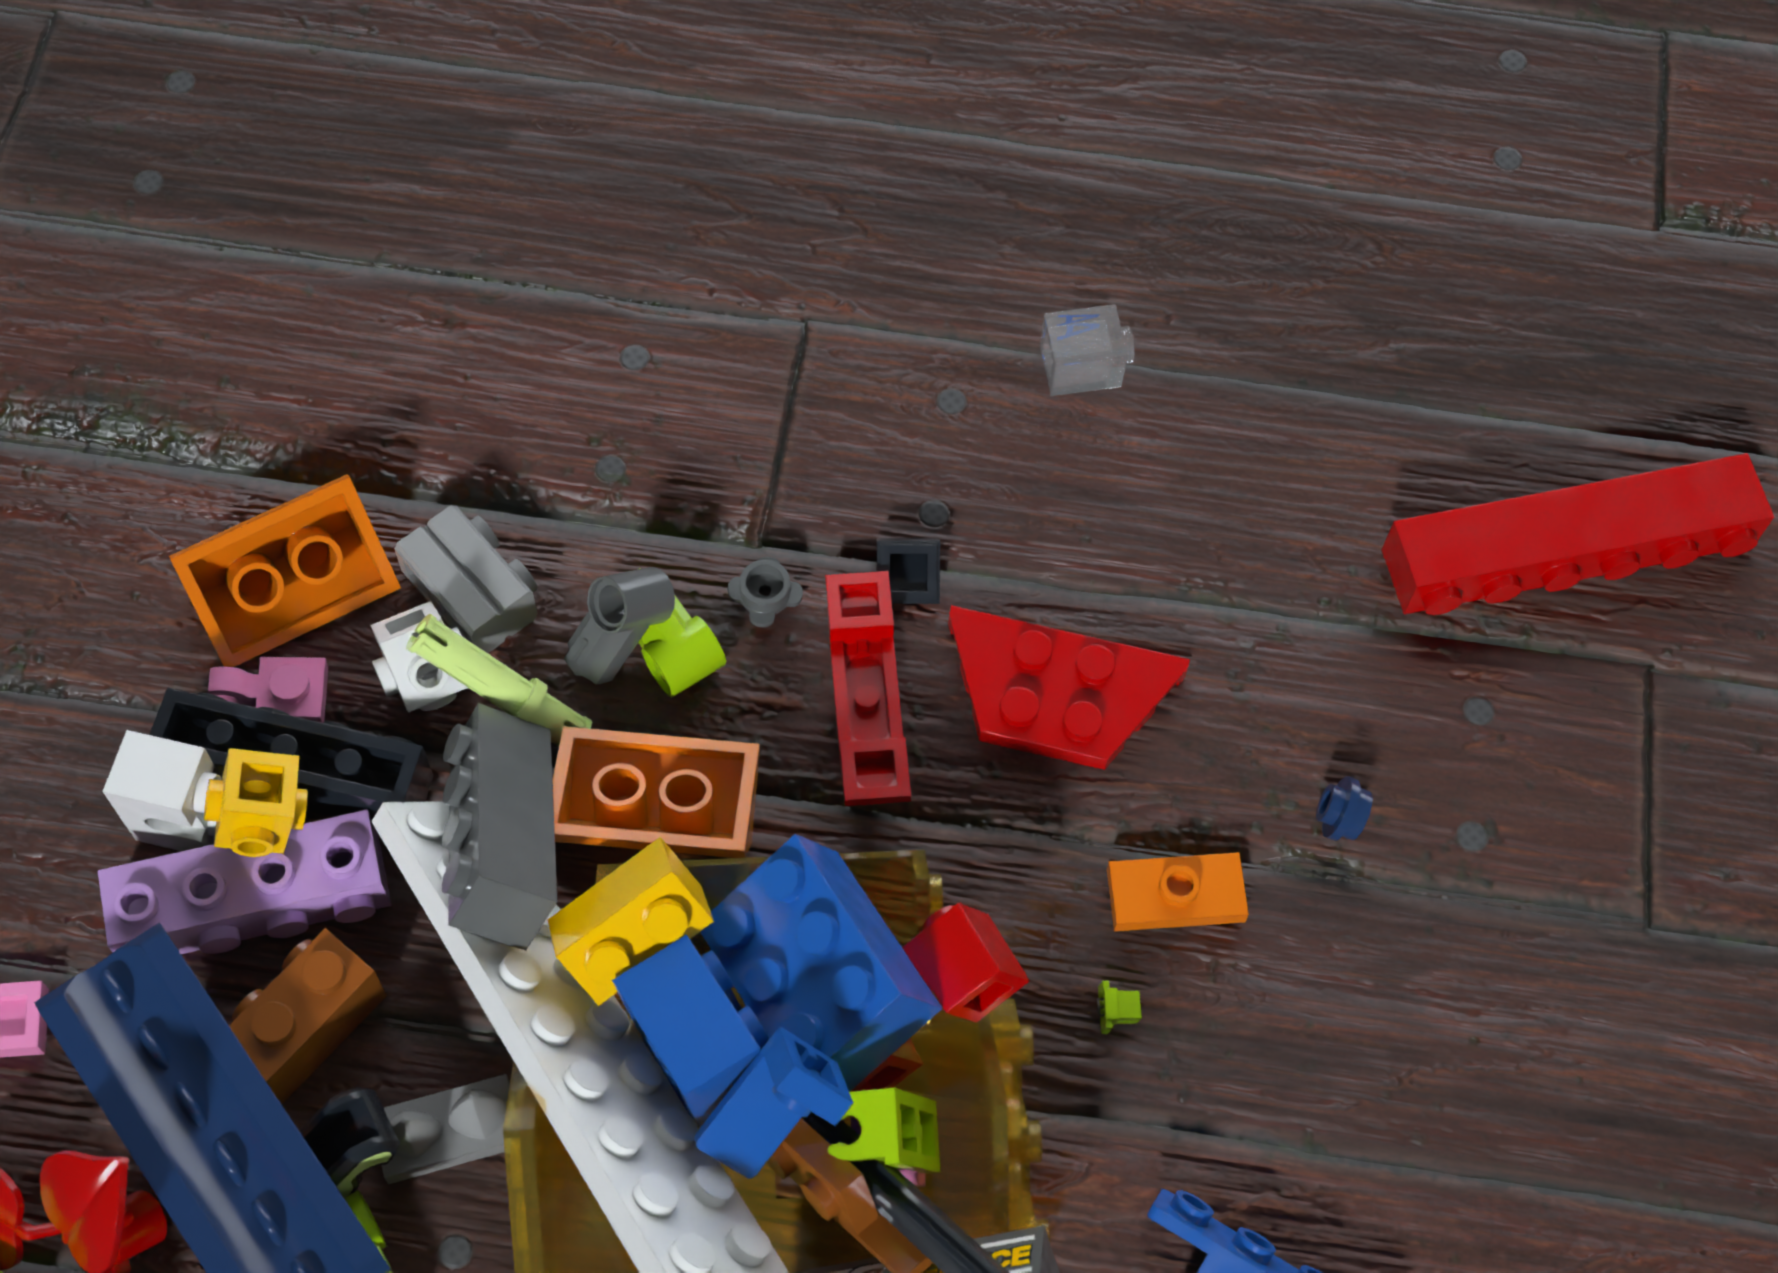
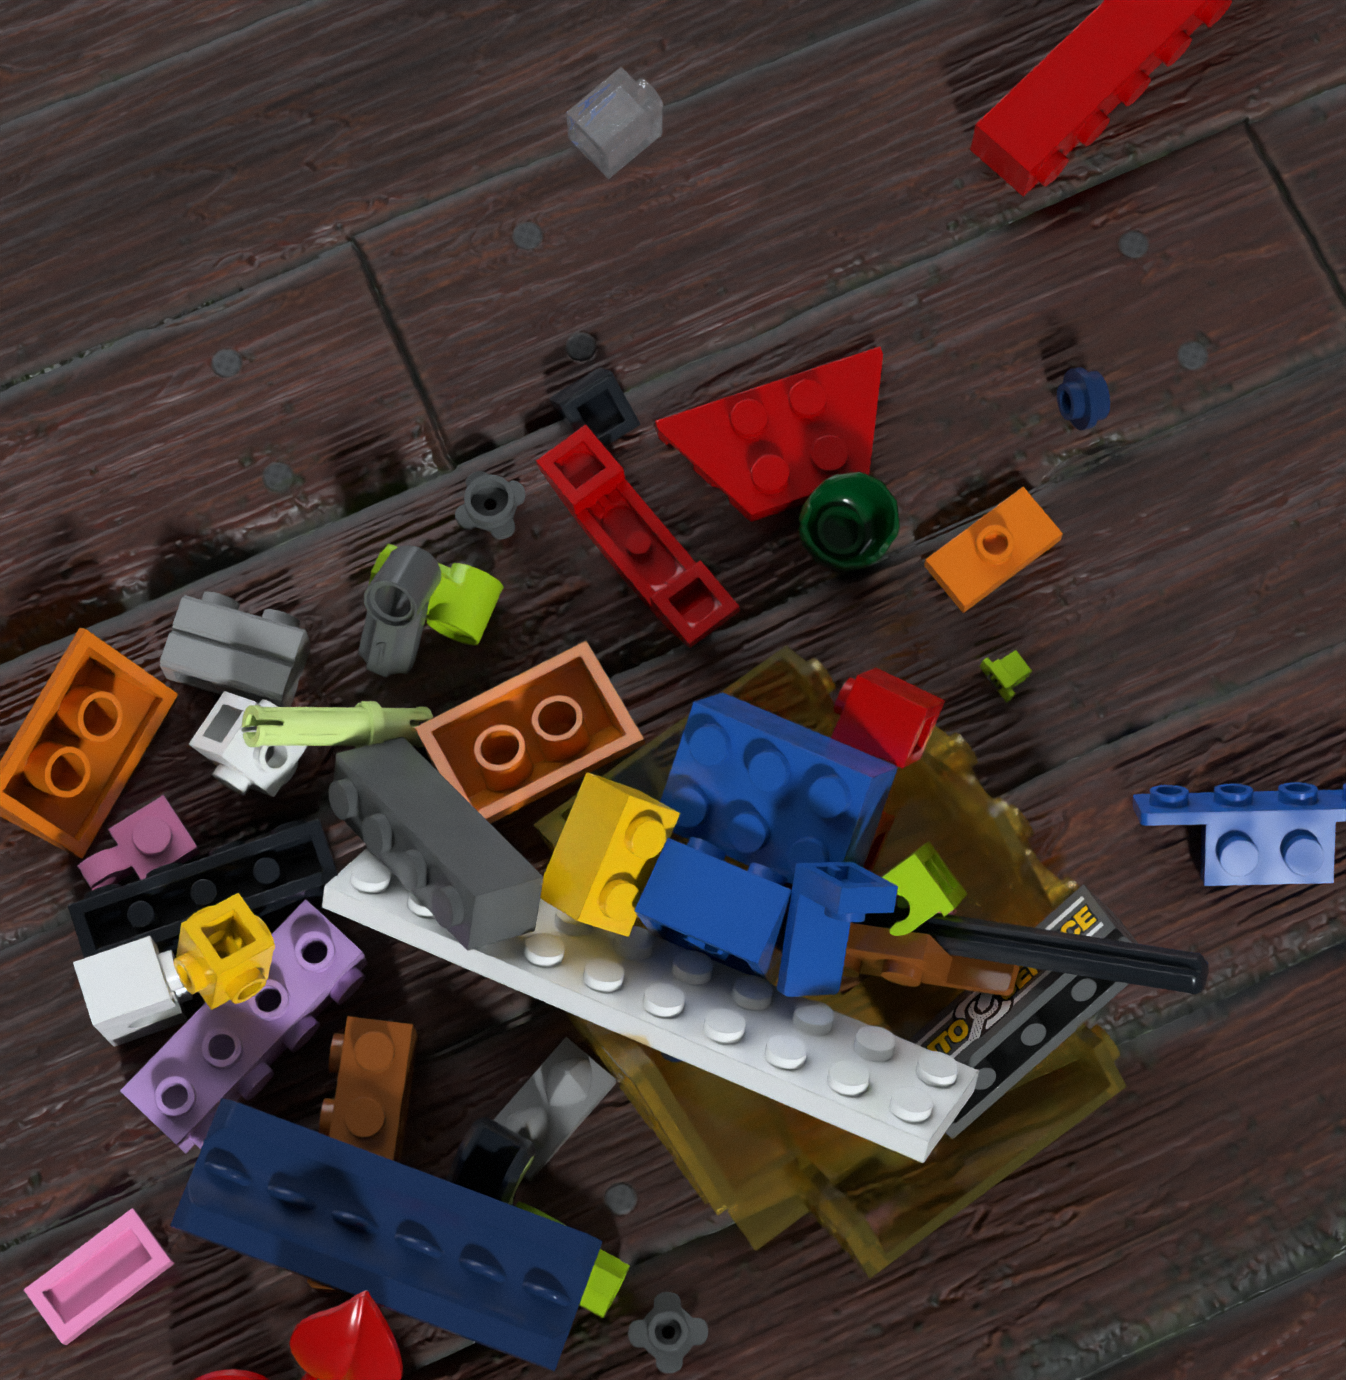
camera: 30 degrees left, 10 degrees up
(1059, 786) = (849, 522): none -> dark green hair

